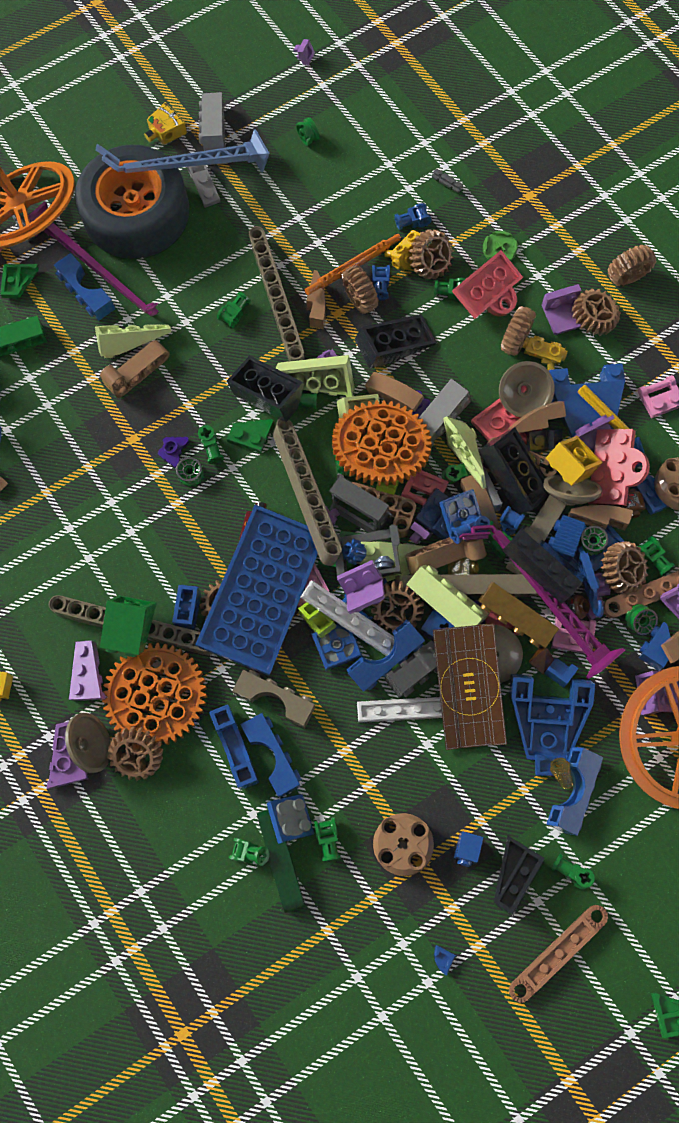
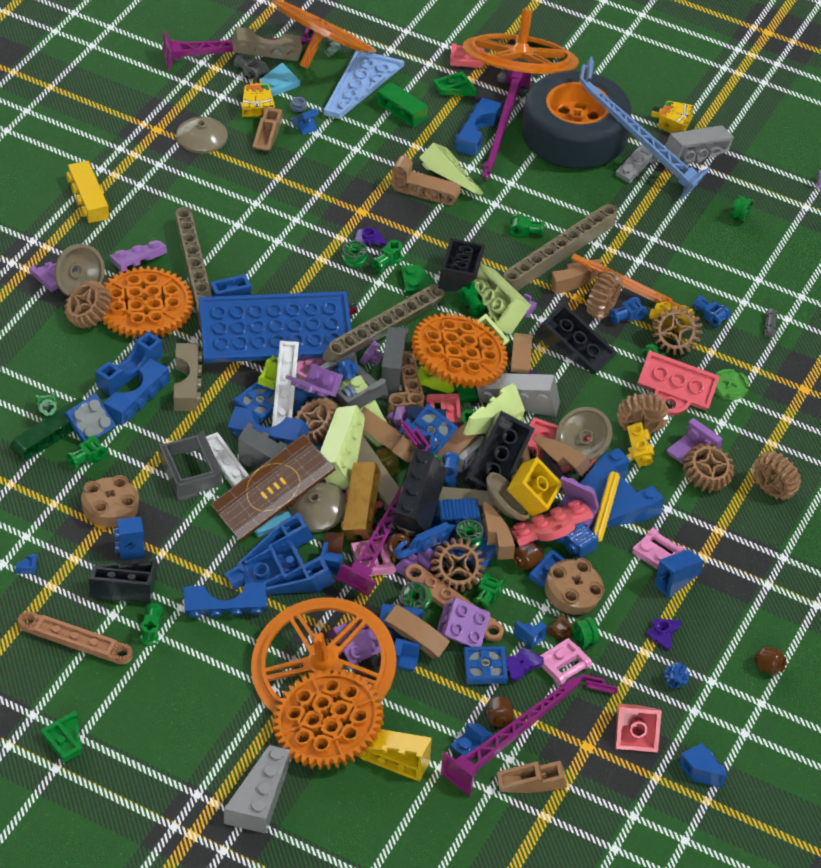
camera: 55 degrees right, 25 degrees down
(127, 625) = (190, 253): green slope -> none
(415, 728) = (189, 487): none -> dark grey piece
(561, 770) = (235, 584): clear yellow cone -> none

